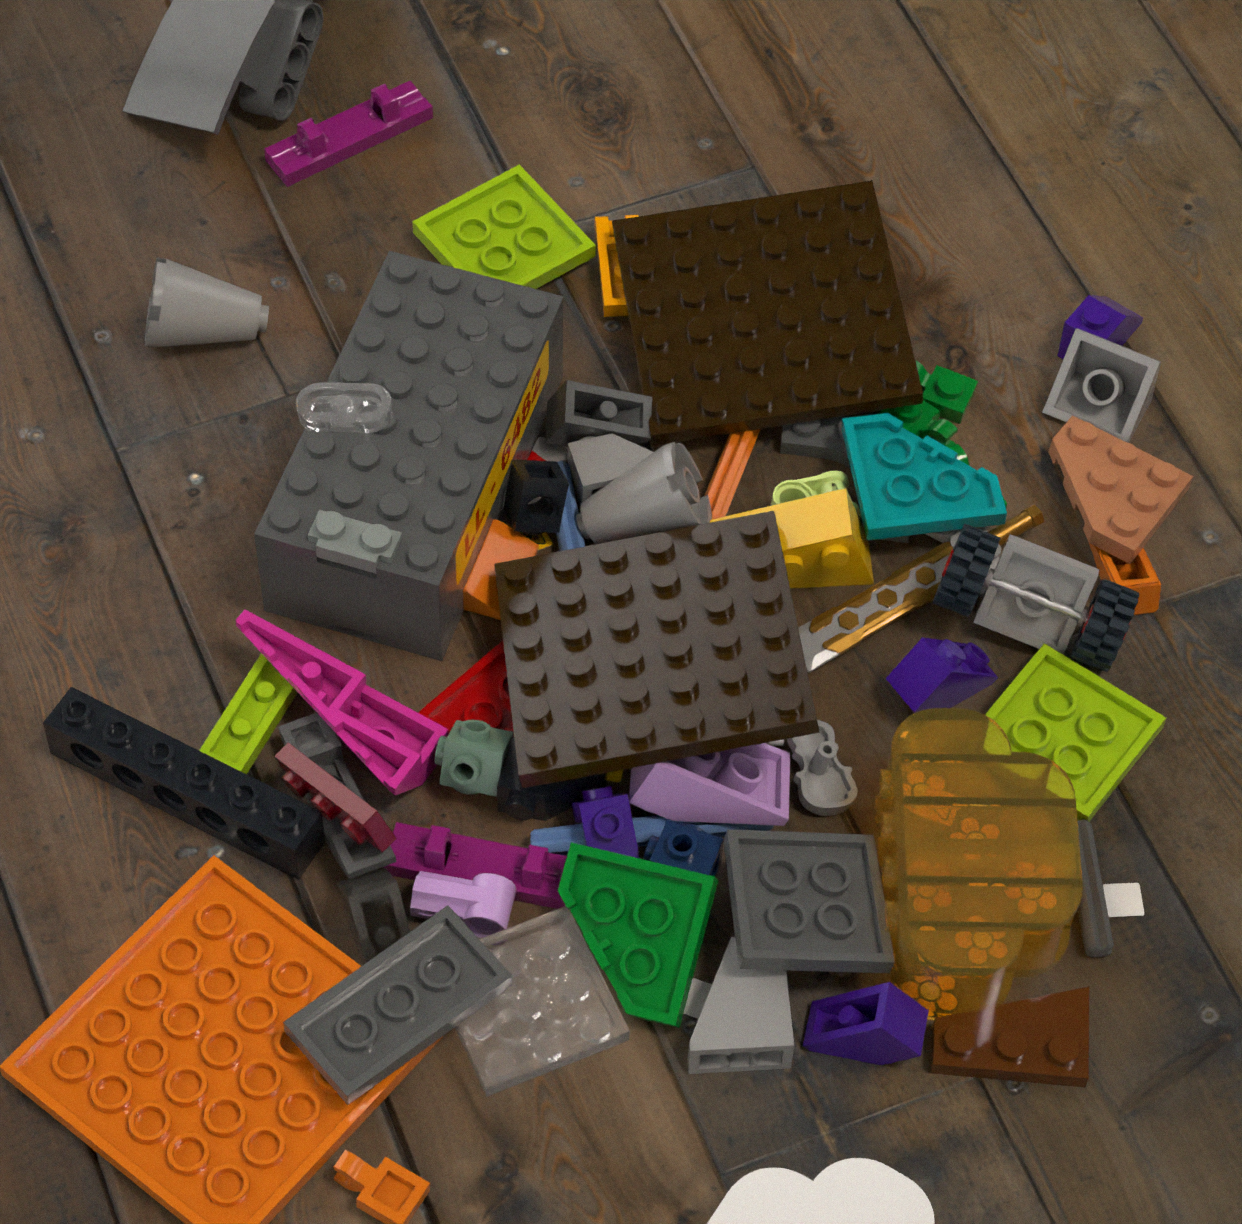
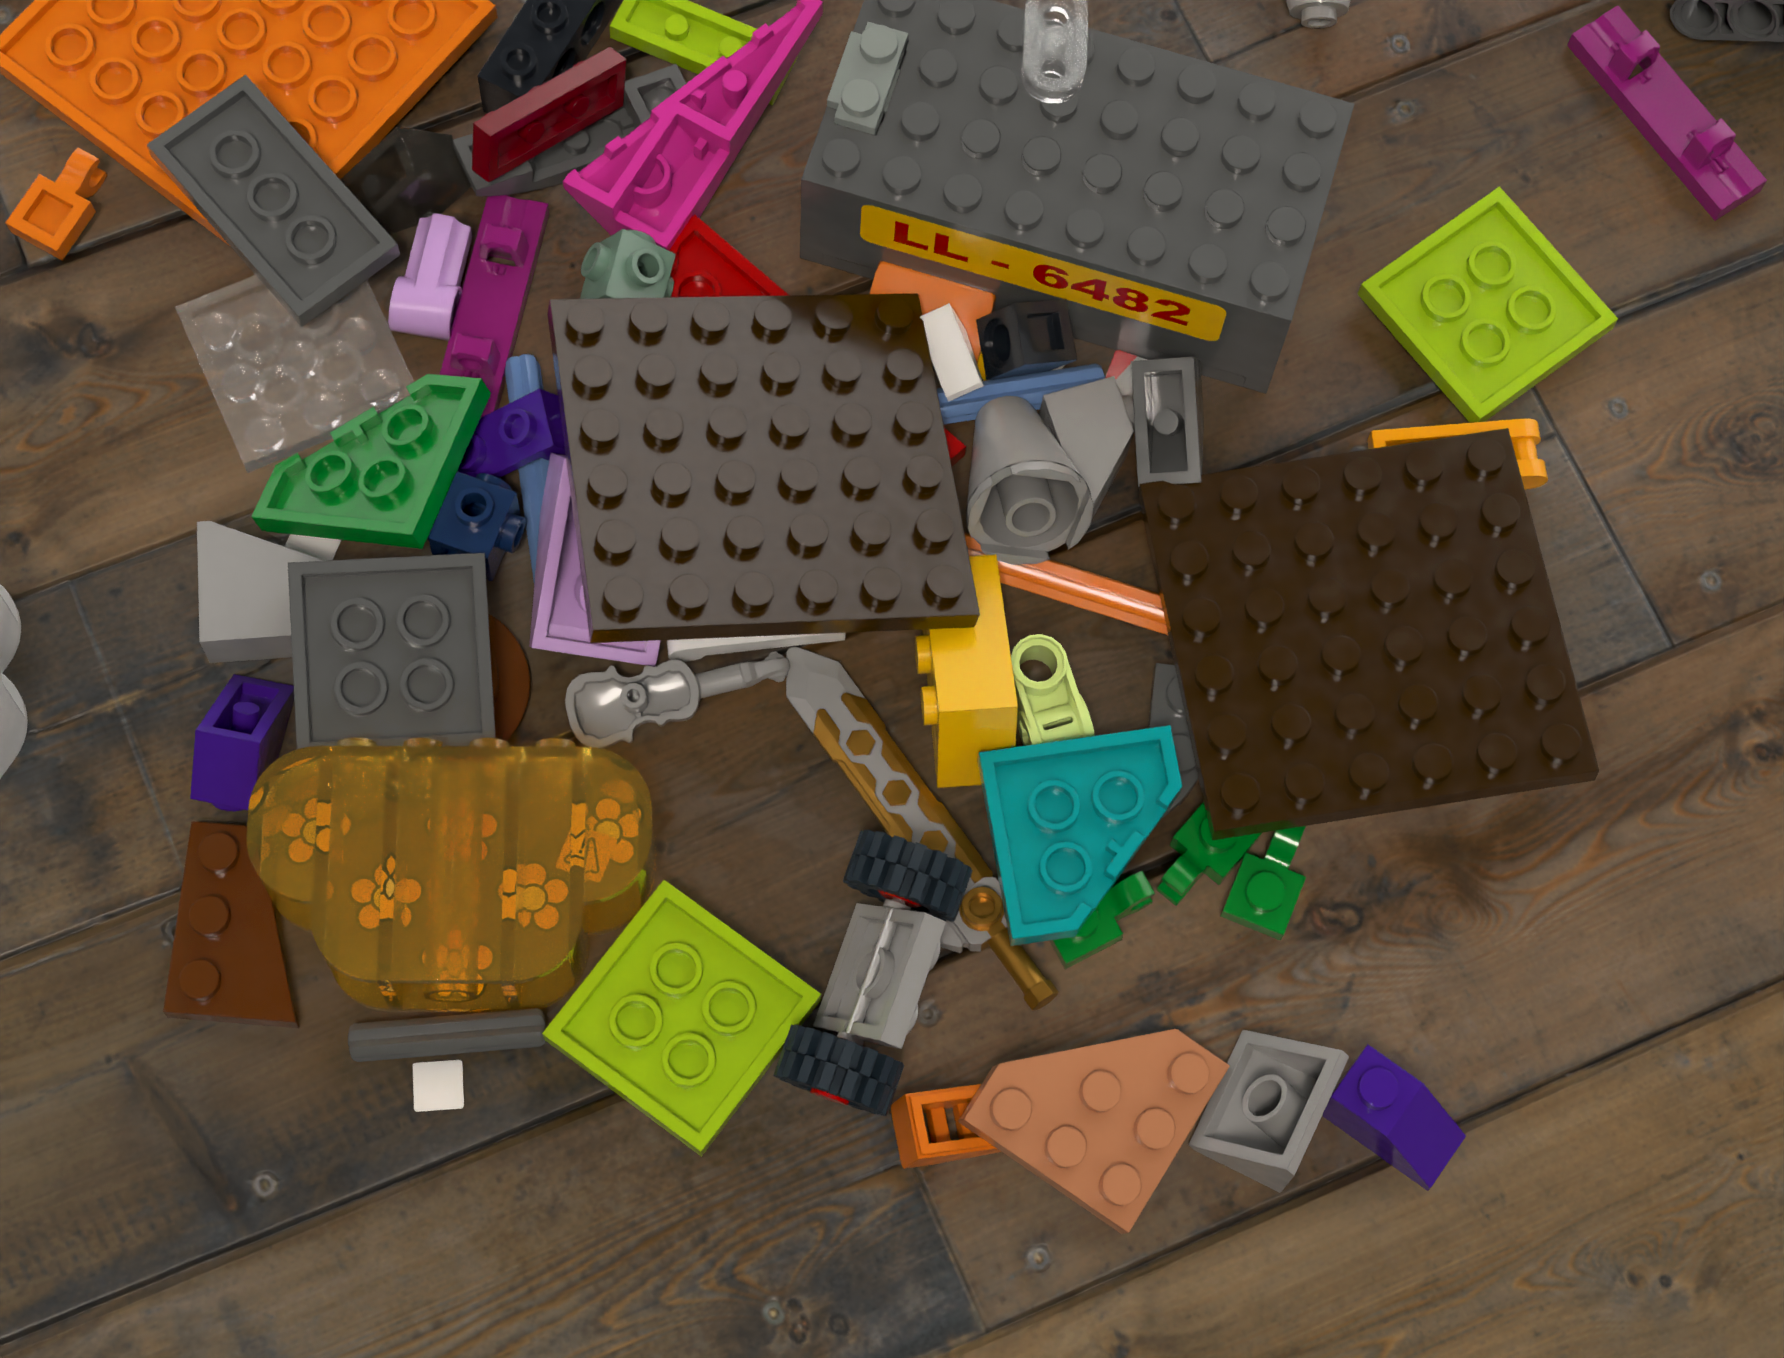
camera: 85 degrees right, 15 degrees up
(543, 542) = (951, 352): none -> white piece
(941, 674) = (769, 858): dark purple slope -> none

